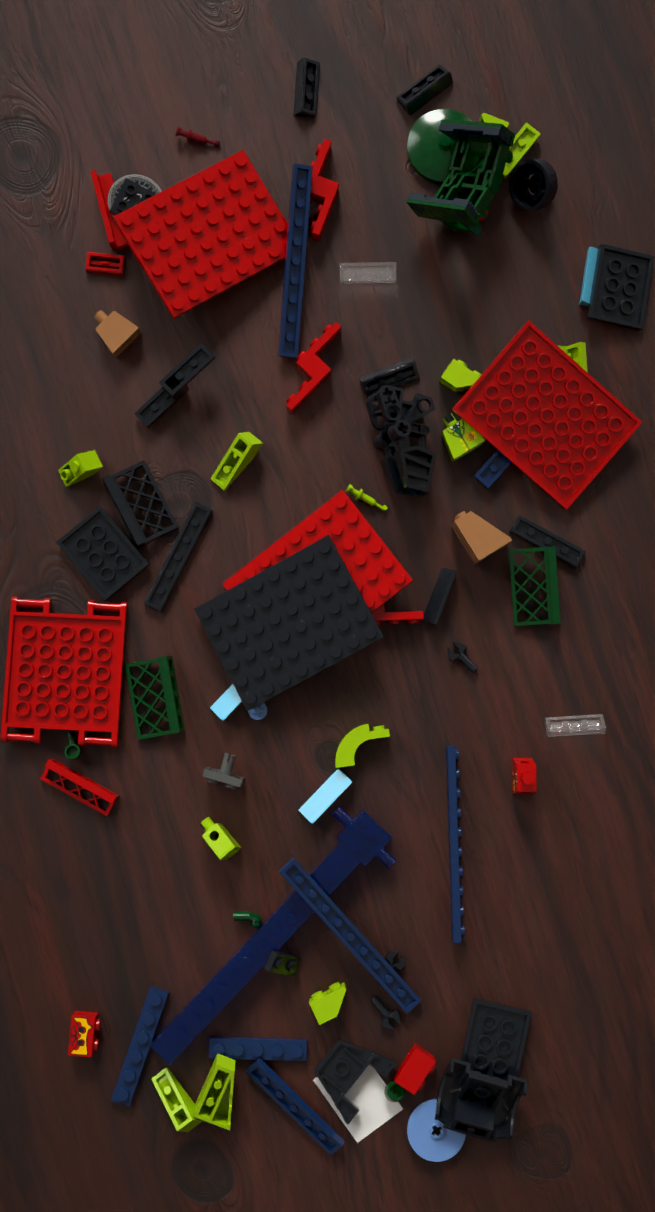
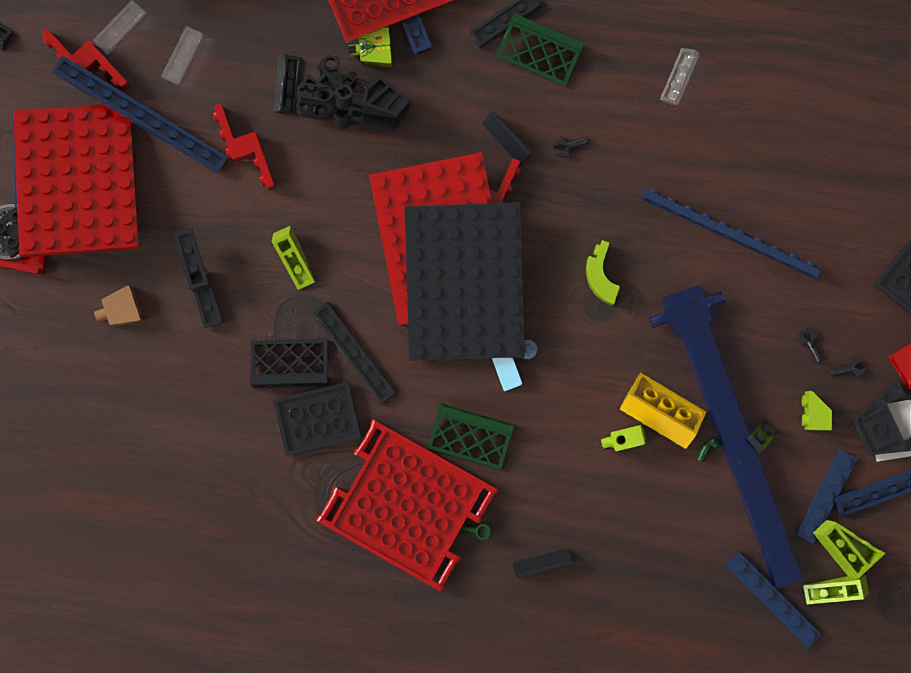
camera: 65 degrees left, 0 degrees up
(71, 819) = (542, 563): none -> black slope
(80, 467) = (229, 401): lime slope -> none
(82, 781) = (516, 535): red fence -> none
(83, 1034) = (738, 644): red brick -> none
(121, 258) = (37, 296): red tile -> none
(224, 773) = (570, 405): dark grey plate -> none
(261, 859) = (663, 410): none -> yellow slope
(325, 796) = (633, 326): slope -> none
(350, 935) = (766, 363): dark blue plate -> none
(364, 497) = (384, 160): lime piece -> none
(365, 205) = (119, 27): none -> clear plate
(458, 376) = (318, 22): lime slope -> none
(478, 536) = (471, 76): medium nougat slope -> none
(523, 776) = (702, 143): red torso -> none

